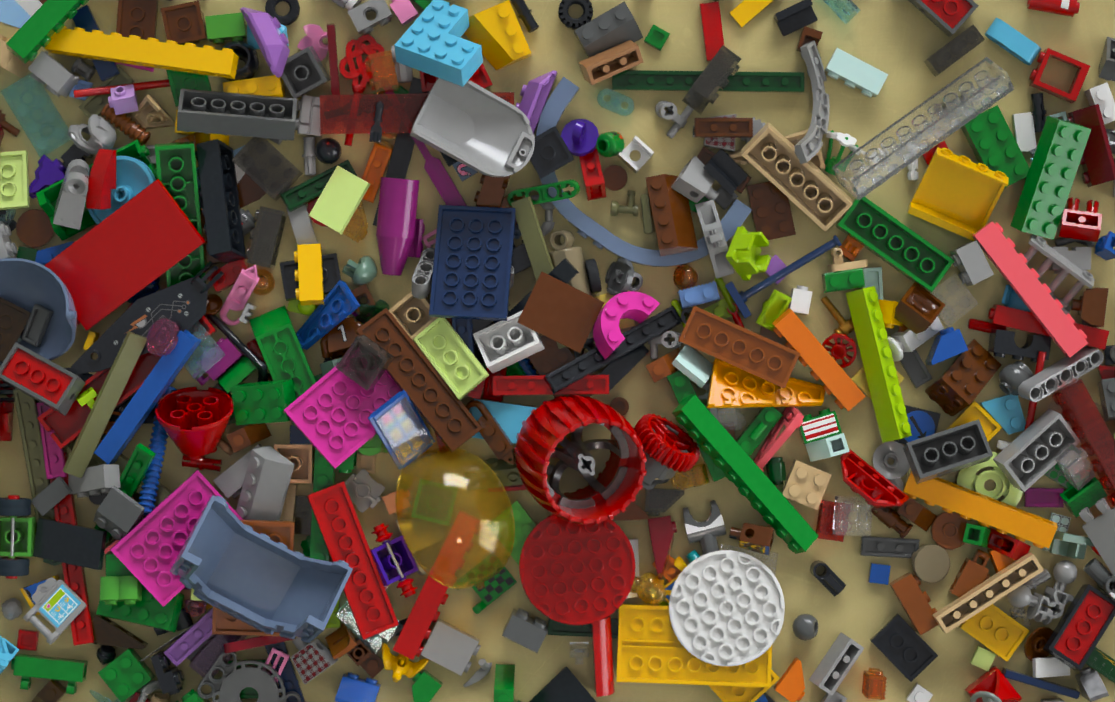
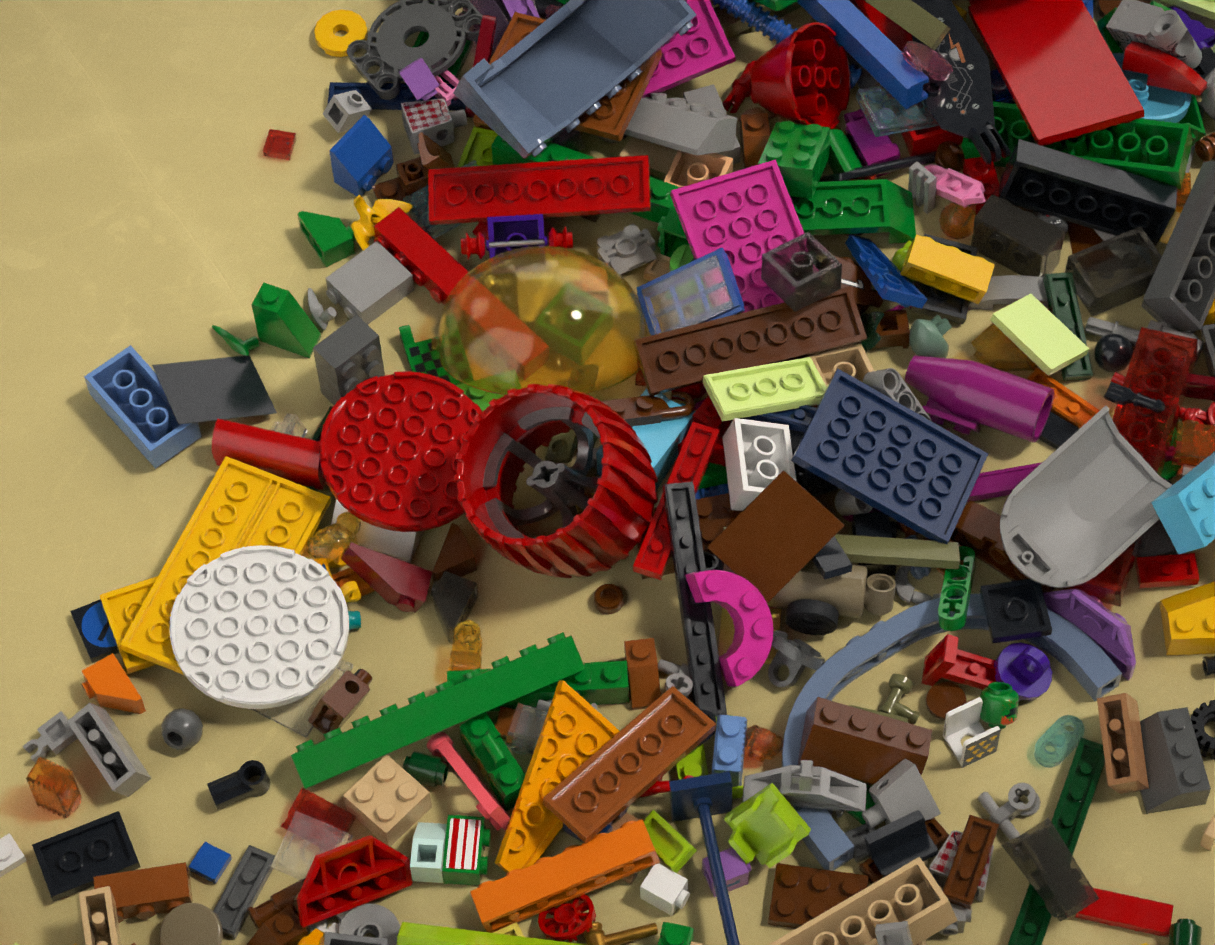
camera: 115 degrees right, 30 degrees down
(287, 678) = (419, 79): none -> medium lavender brick
(621, 366) = (664, 615): black slope -> none
(656, 37) = (1139, 830): green tile -> none
(666, 449) = (523, 607): red piece -> none
(693, 365) = (625, 697): light aqua tile -> none
(705, 531) = (382, 645): dark grey connector -> none

